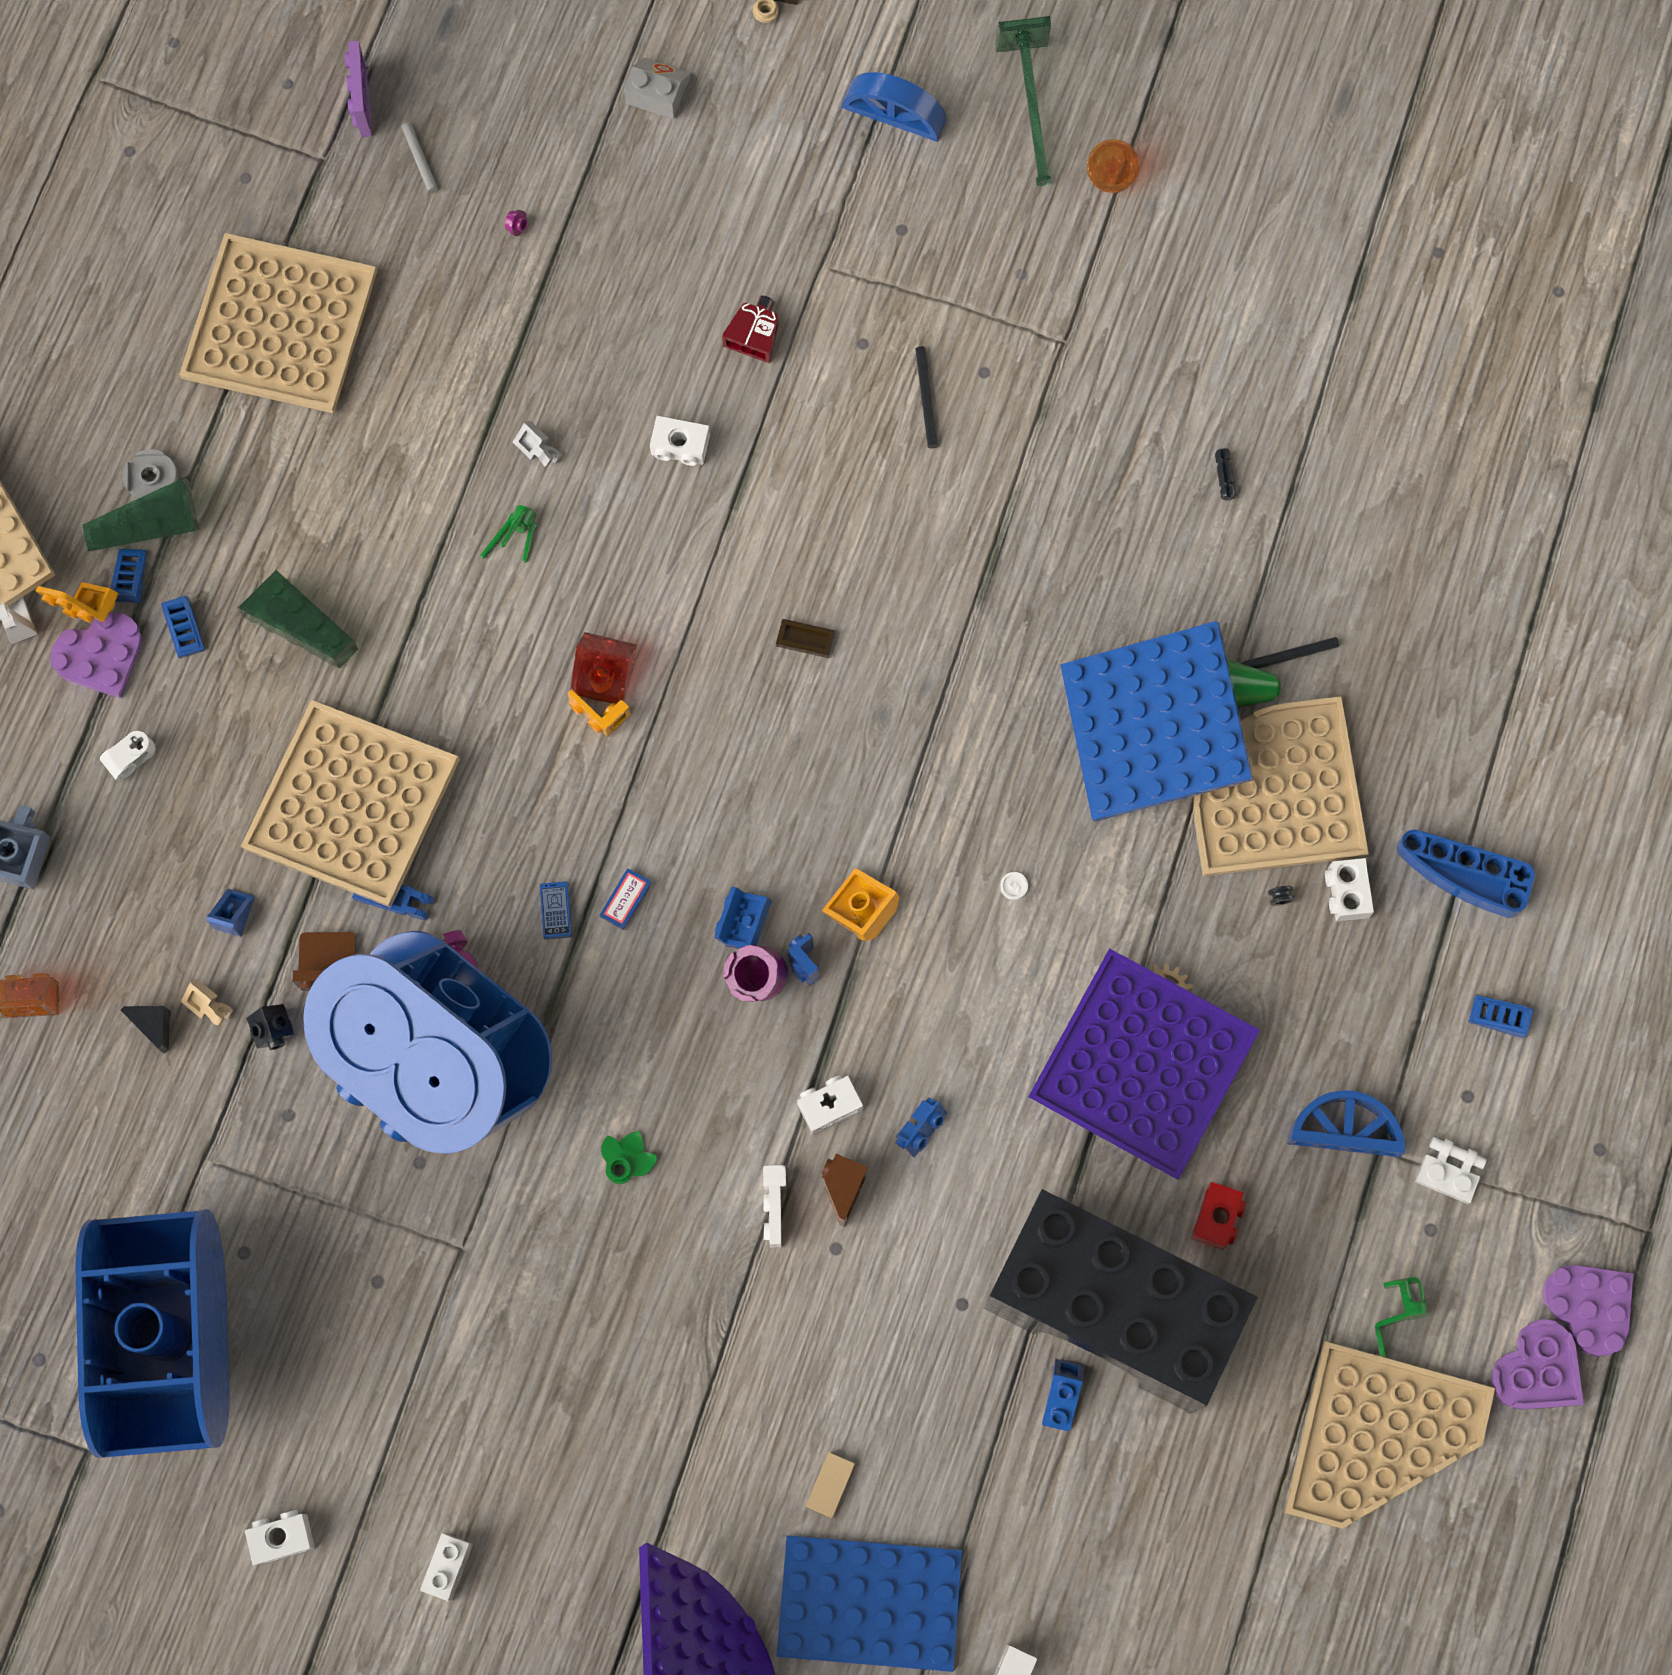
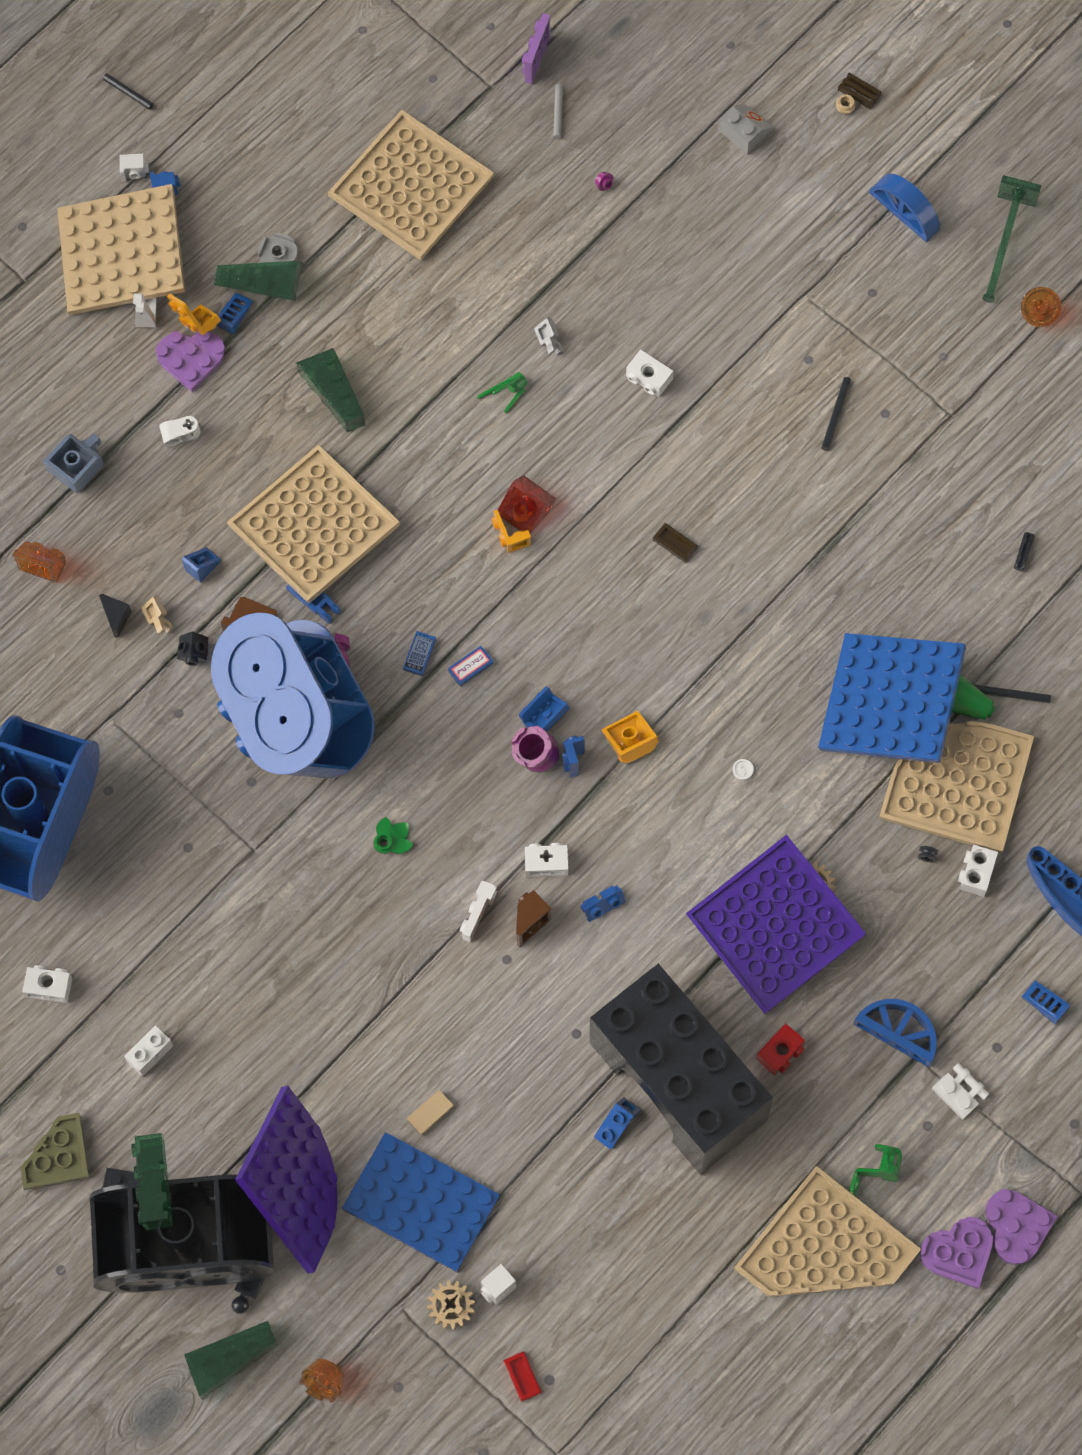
camera: 25 degrees right, 5 degrees down
(177, 605) = (254, 348): blue slope -> none
(753, 330) = (735, 319): dark red torso -> none

